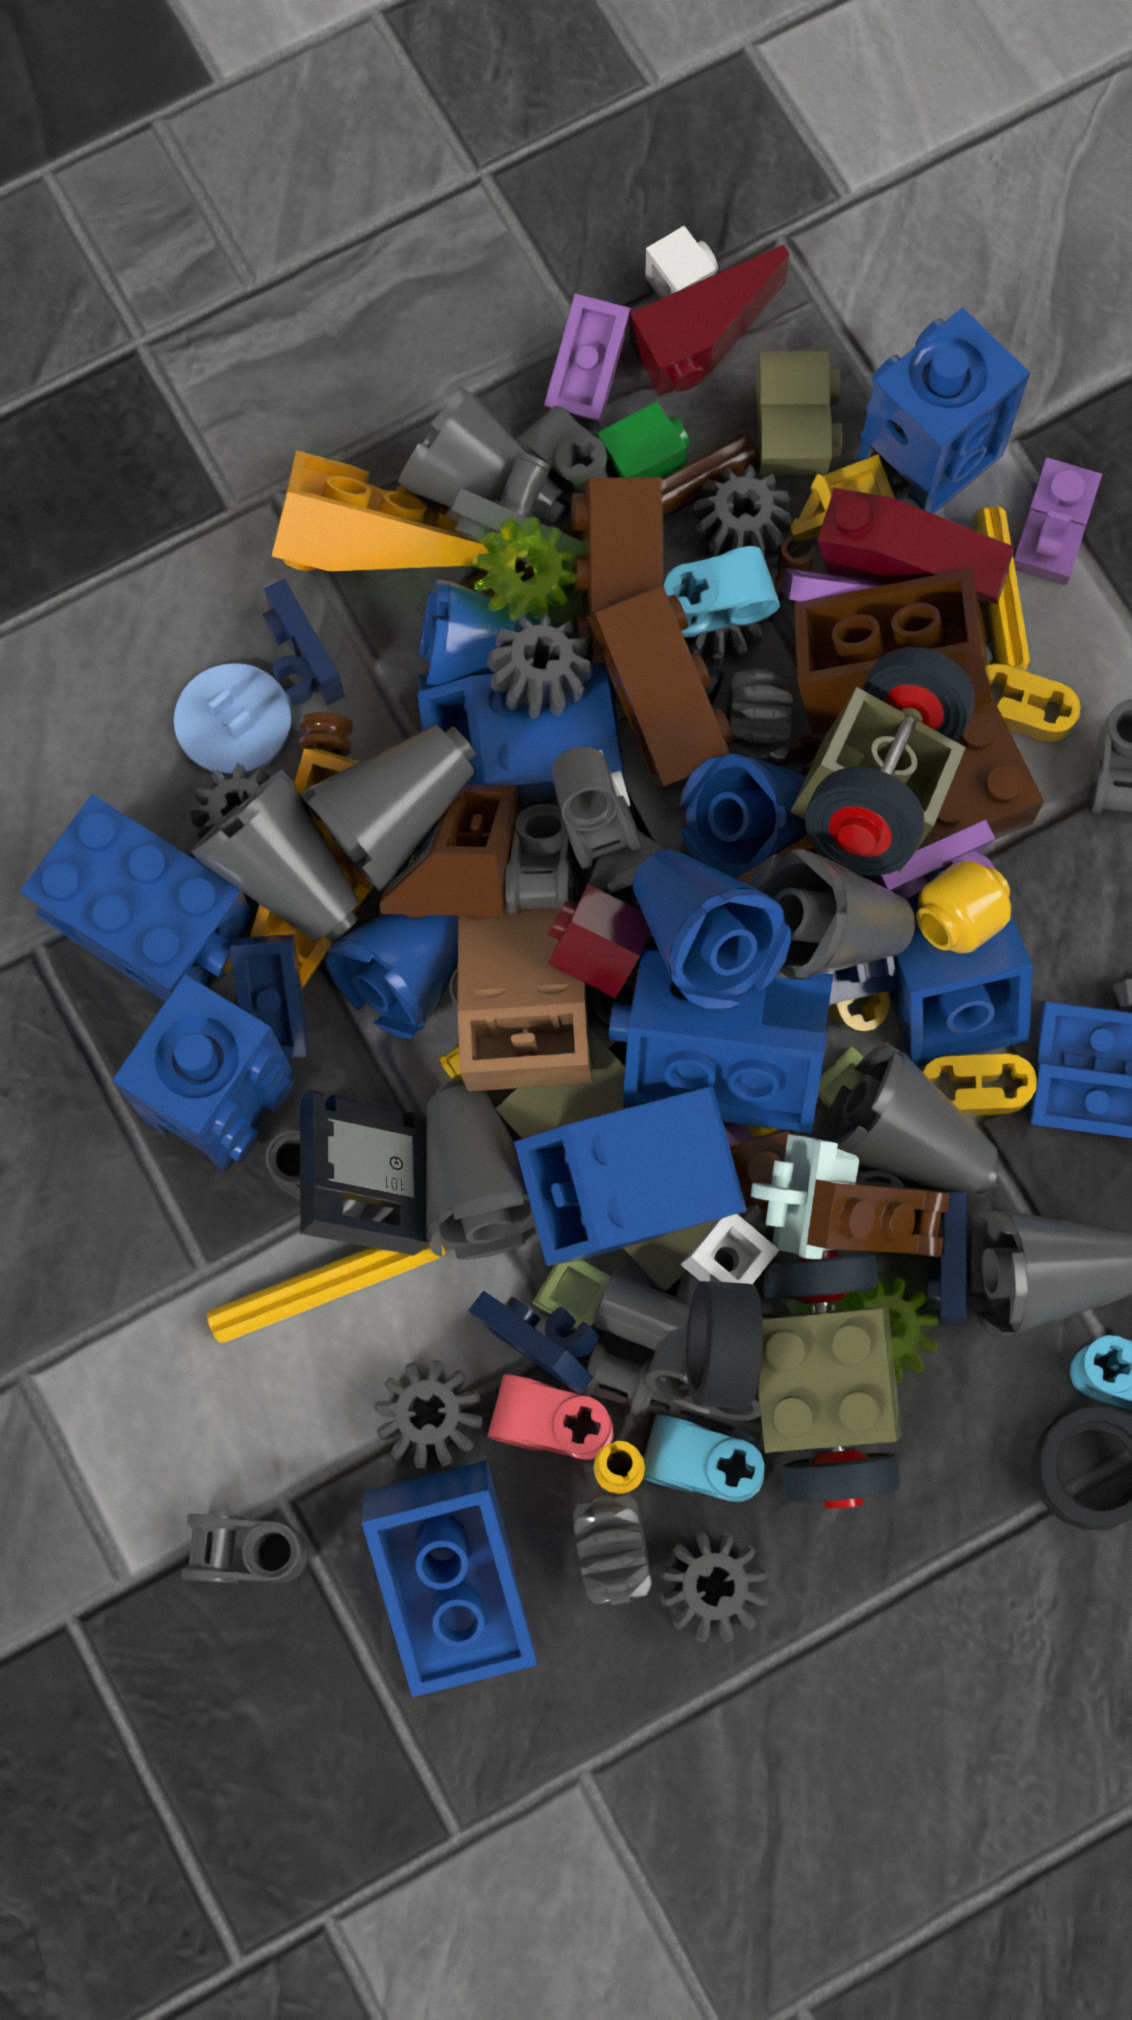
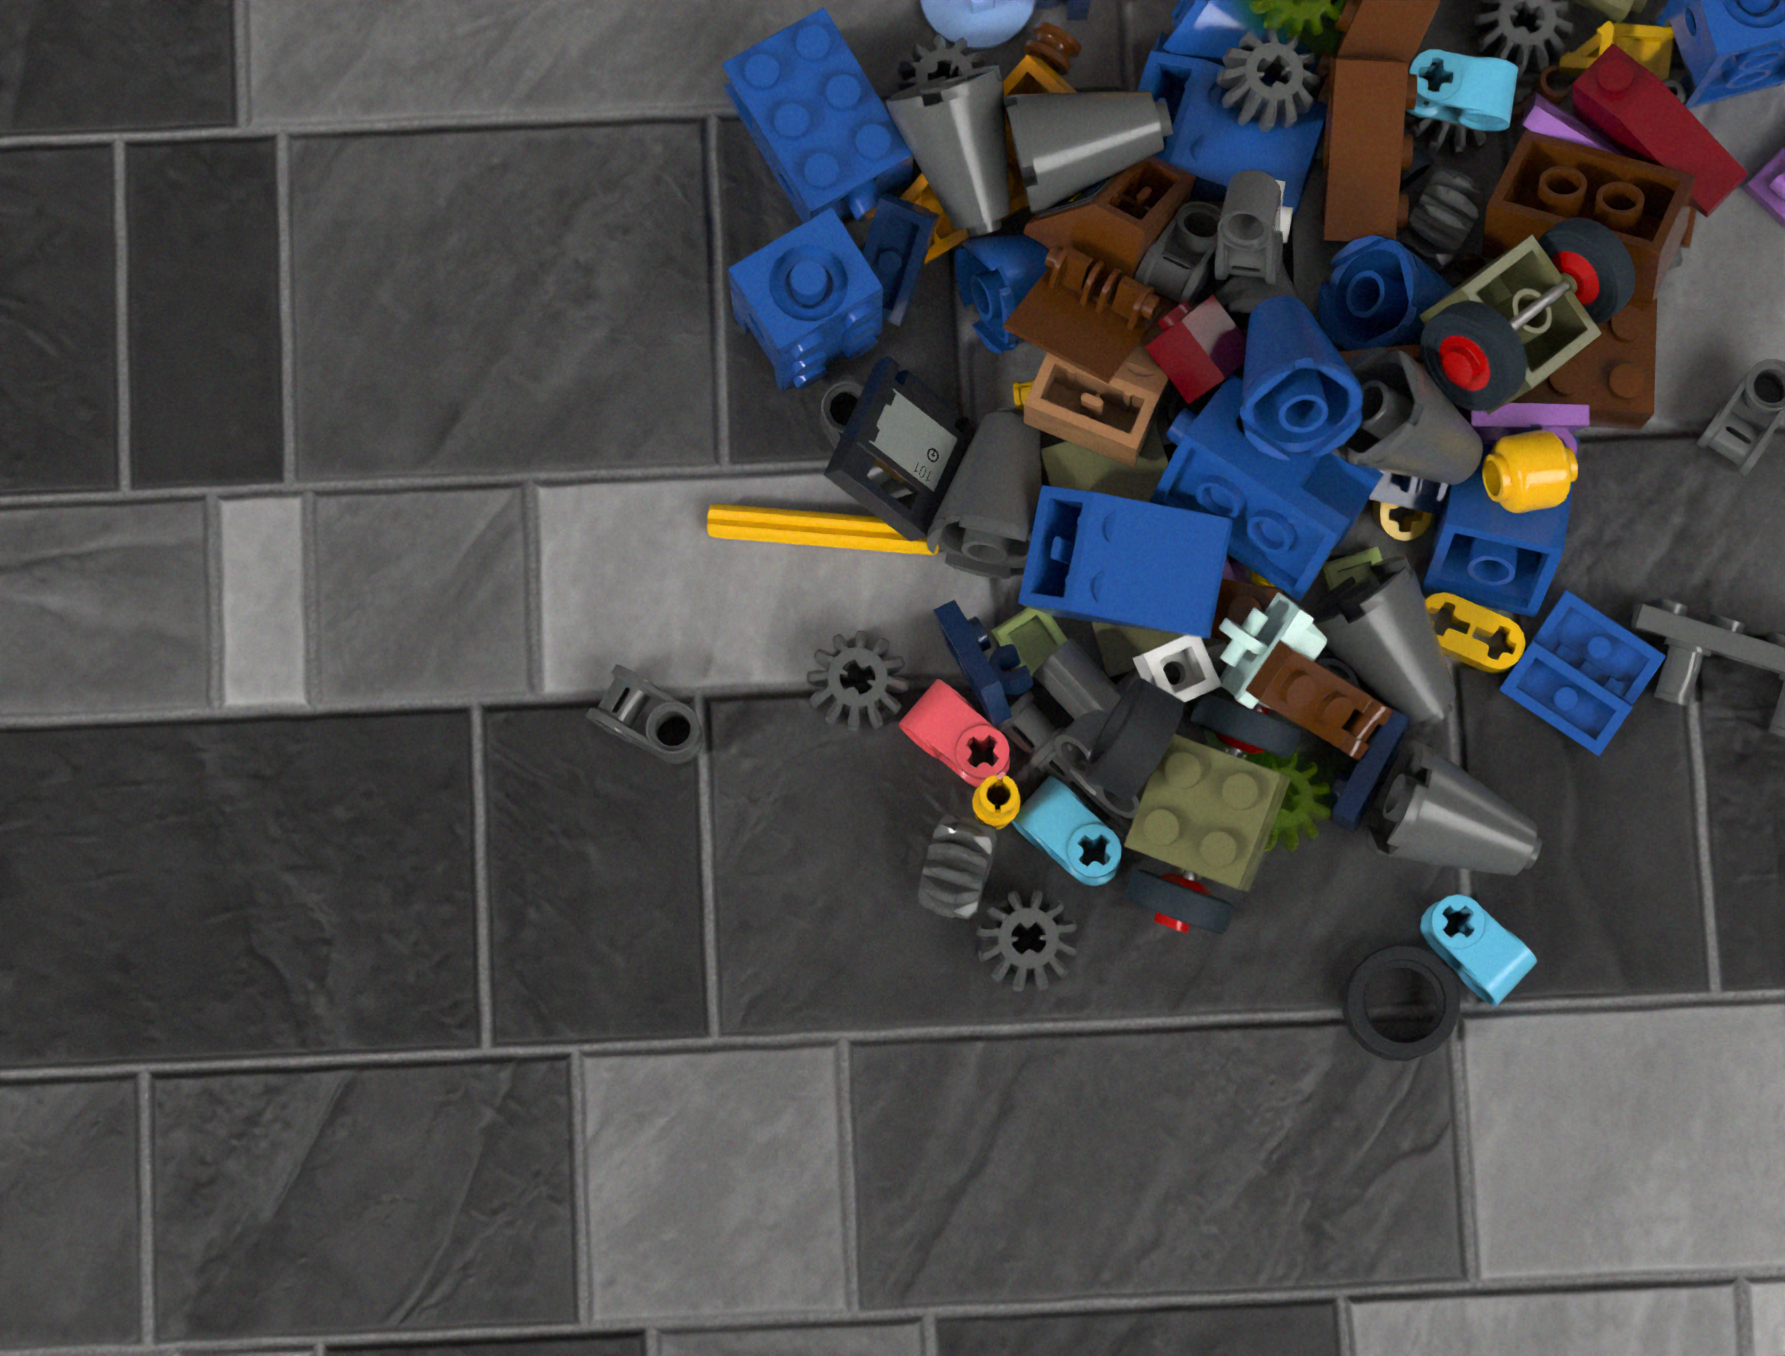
camera: 20 degrees right, 5 degrees up
(448, 1578) = (808, 824): blue slope -> none
(476, 961) = (1084, 314): none -> reddish brown hinge
(1006, 617) = (1714, 231): yellow axle -> none
(1027, 696) = (1703, 312): yellow beam -> none

